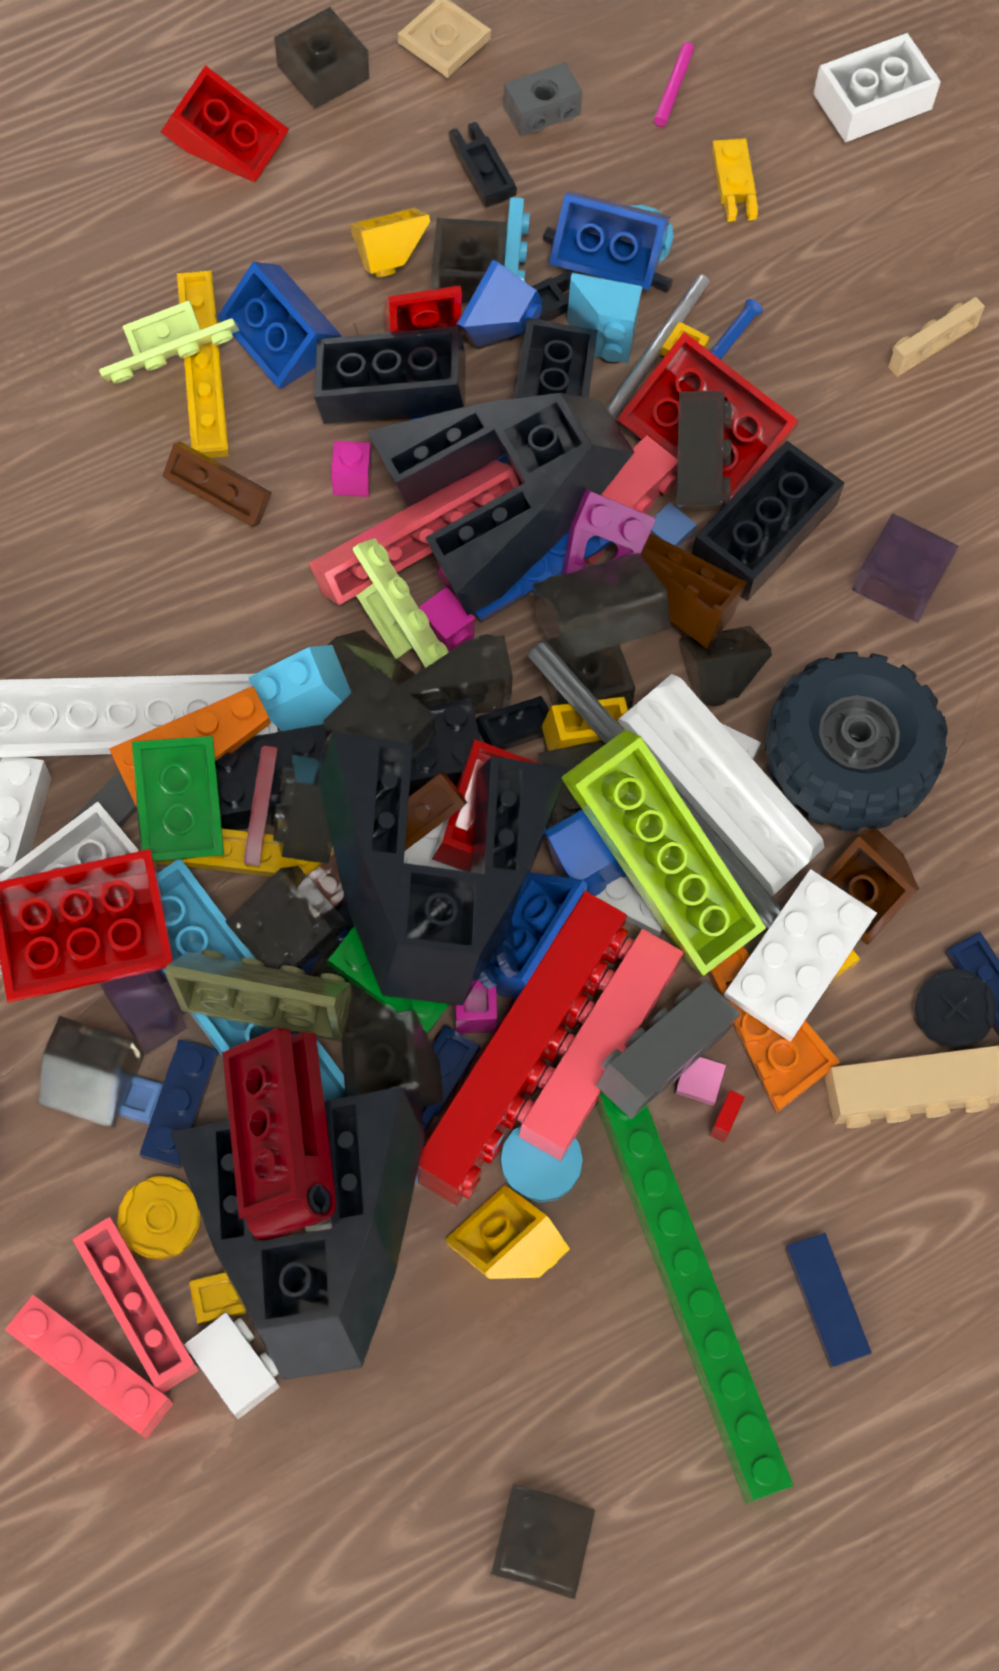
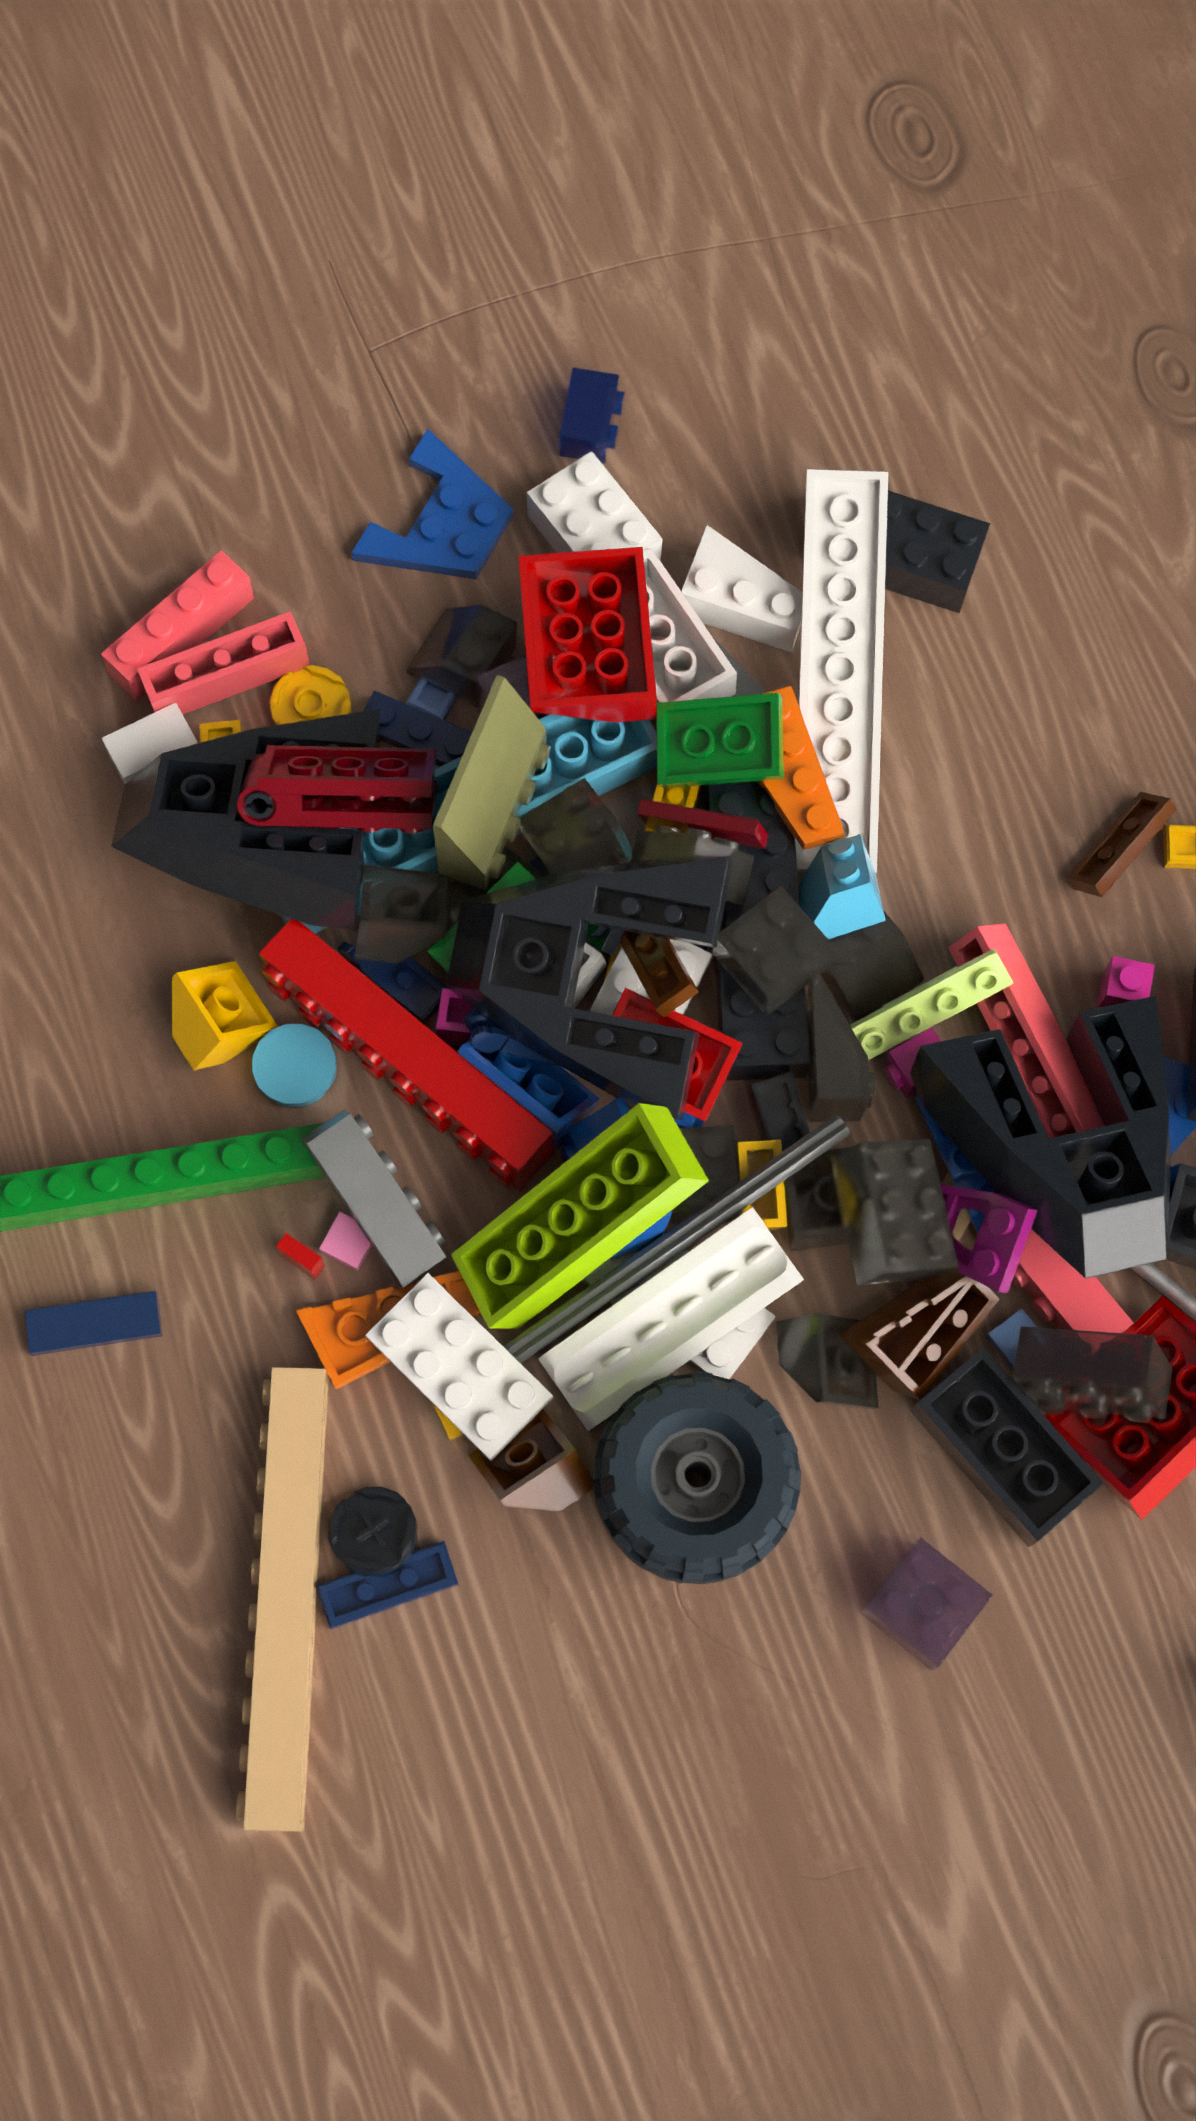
camera: 100 degrees right, 5 degrees up
(607, 1025) = (417, 1149): coral brick -> none

